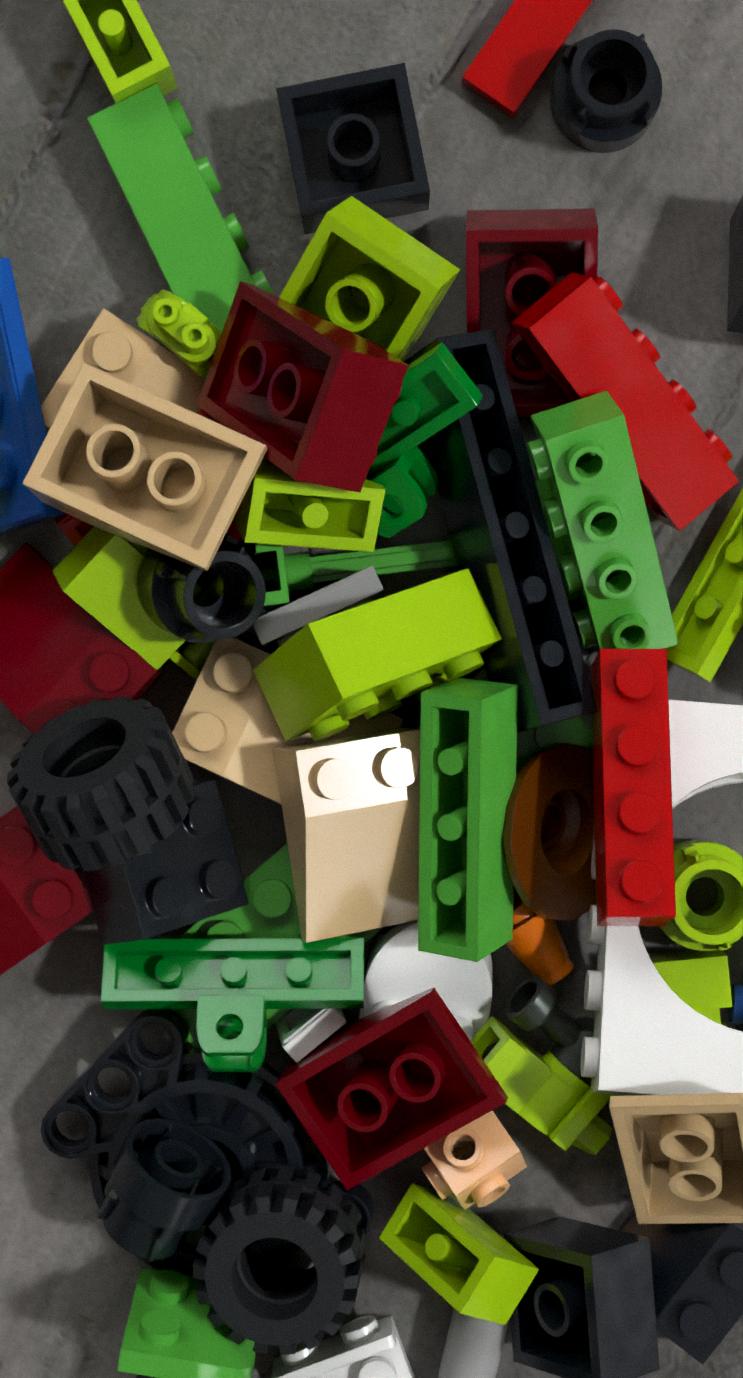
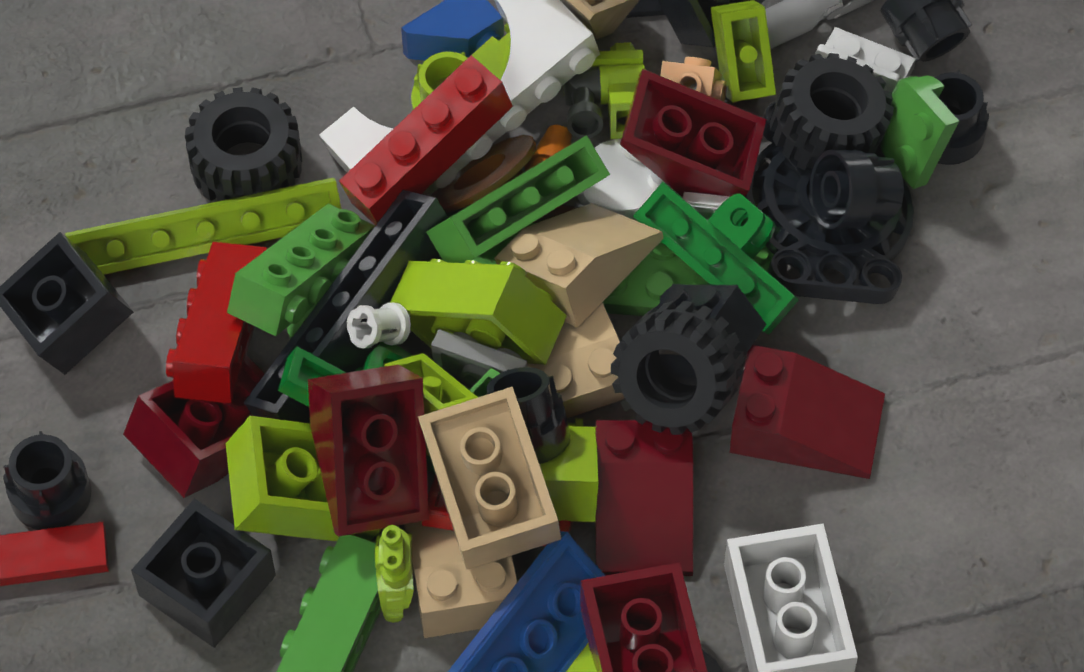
camera: 135 degrees left, 30 degrees down
(447, 534) = (378, 325): none -> white bush

